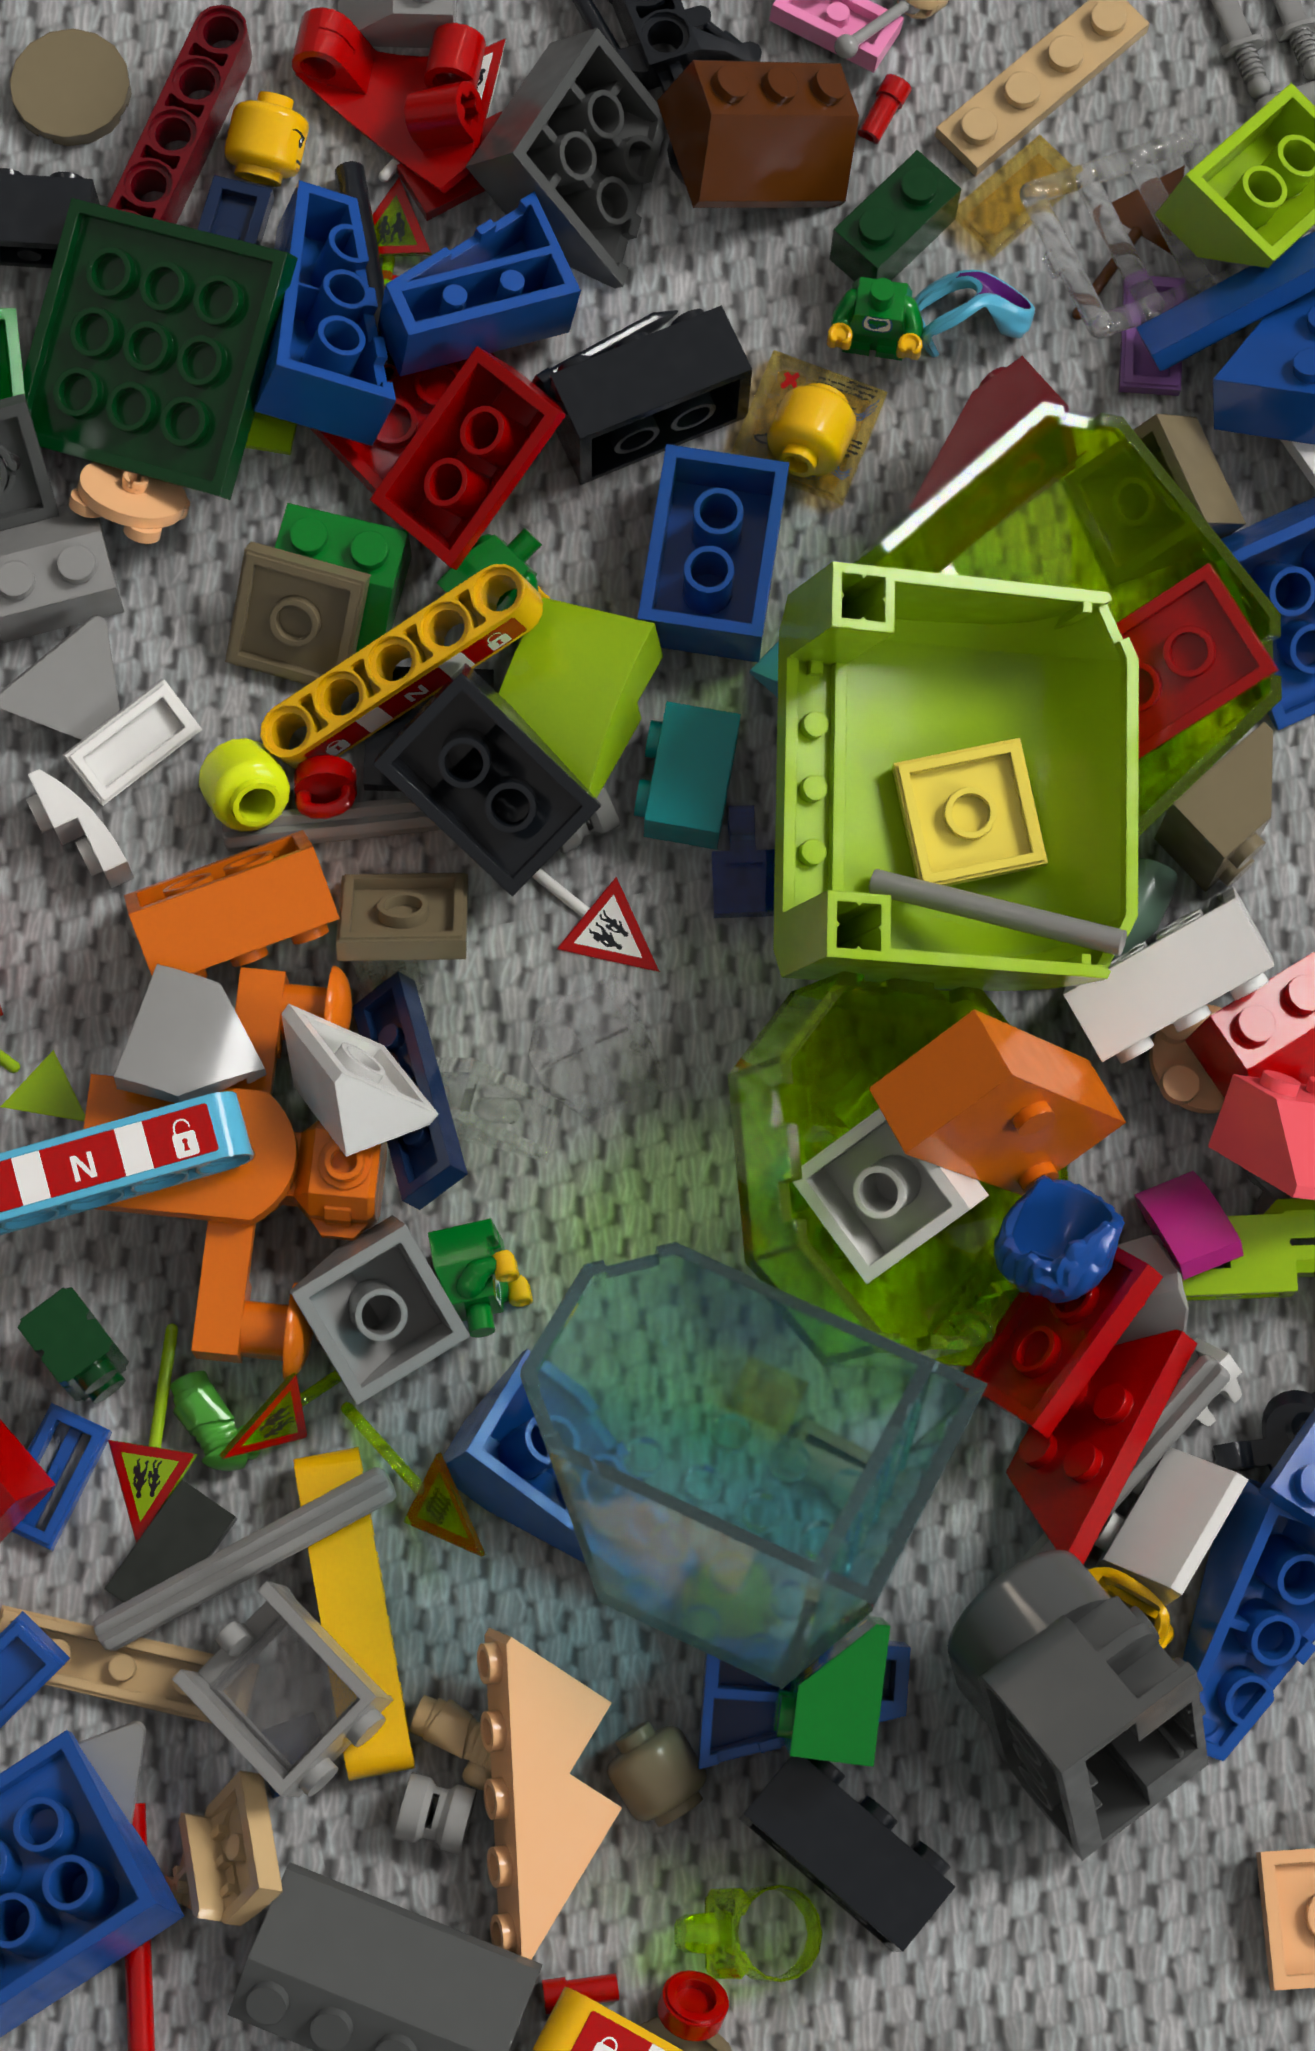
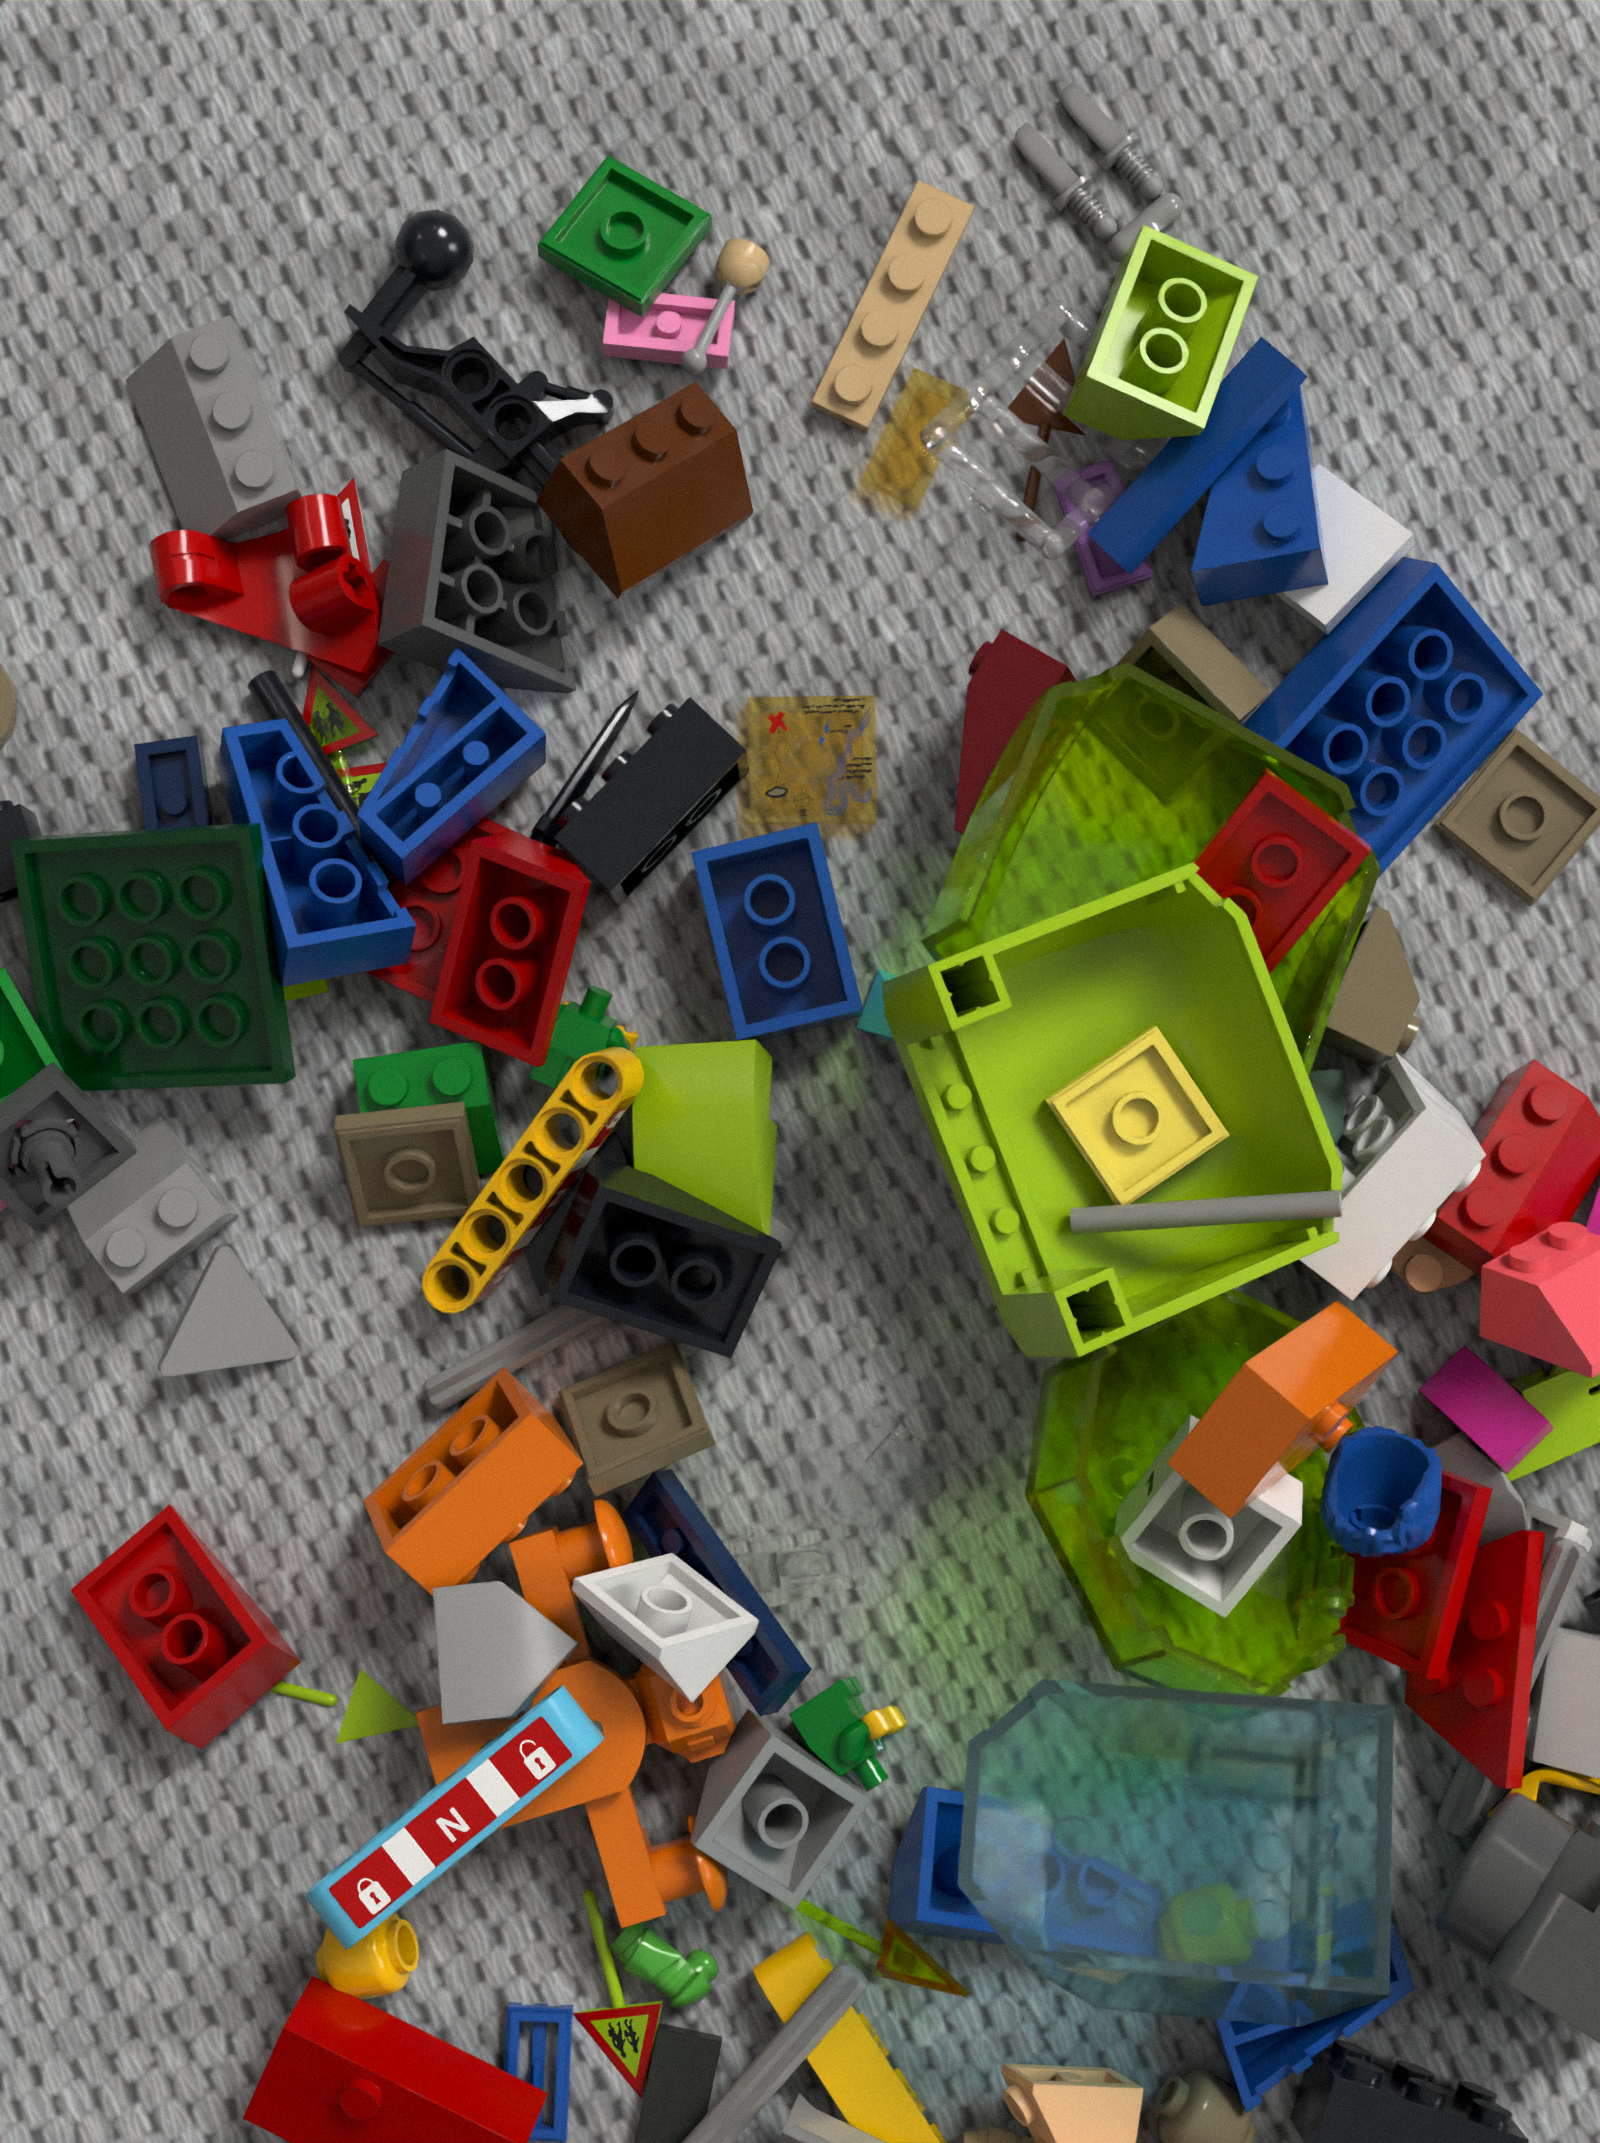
camera: 15 degrees left, 10 degrees up
(71, 818) = (273, 1445): white slope -> none
(75, 1346) = (511, 1962): dark green brick -> none
(129, 500) = (197, 1118): light nougat piece -> none
(132, 742) = (304, 1345): white tile -> none
(186, 119) = (71, 698): dark red beam -> none
(244, 785) = (430, 1349): neon yellow head -> none
(266, 139) = (168, 686): yellow head -> none
(280, 1417) = (724, 1943): piece -> none
(324, 786) = (505, 1312): red tile -> none
(606, 928) = (825, 1337): piece -> none
(690, 774) = (844, 1161): teal brick -> none
(742, 875) = (935, 1237): clear blue plate -> none
(813, 429) = (821, 772): yellow head -> none
(838, 1699) = (1363, 2054): green slope -> none
(878, 318) = (838, 625): green piece -> none
(890, 97) = (753, 386): red piece -> none
(896, 221) = (813, 521): dark green brick -> none
(1006, 305) = (944, 560): medium azure piece -> none

